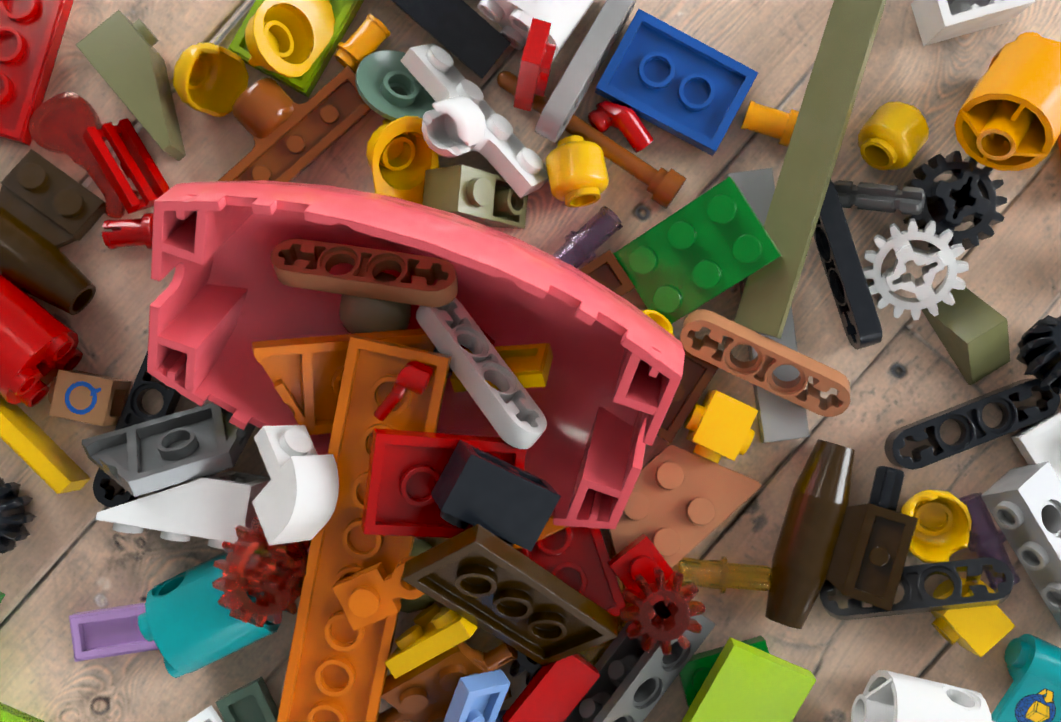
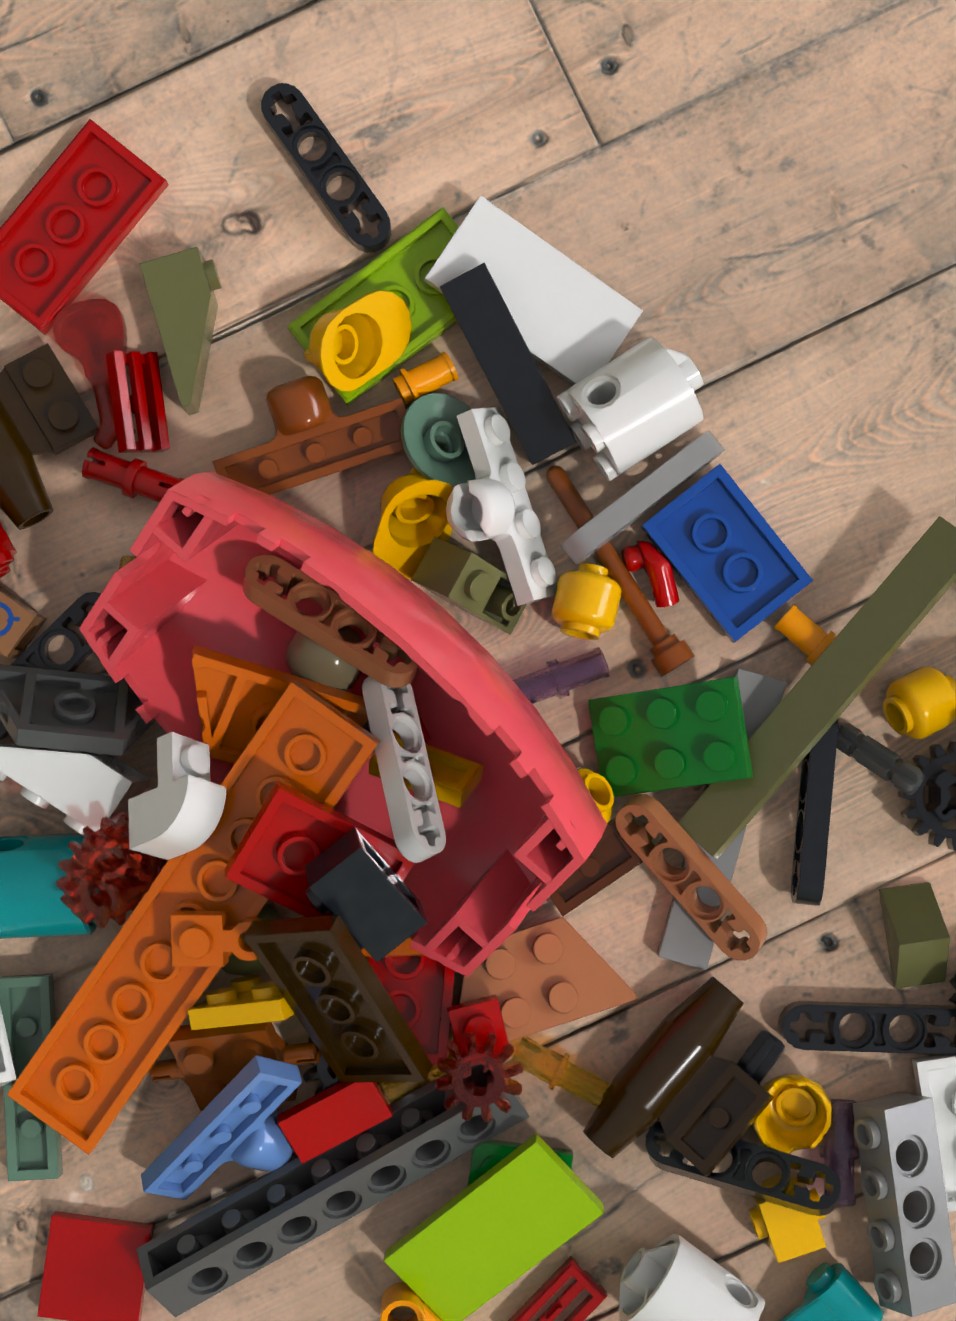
camera: 25 degrees right, 0 degrees up
(210, 78) = (258, 351): yellow hair -> none
(413, 377) = (335, 749): red hand -> none
(534, 65) = (587, 484): red plate -> none
(609, 273) = (568, 721): reddish brown plate -> none
(720, 427) = (619, 922): yellow brick -> none
(935, 261) = (883, 868): white gear -> none

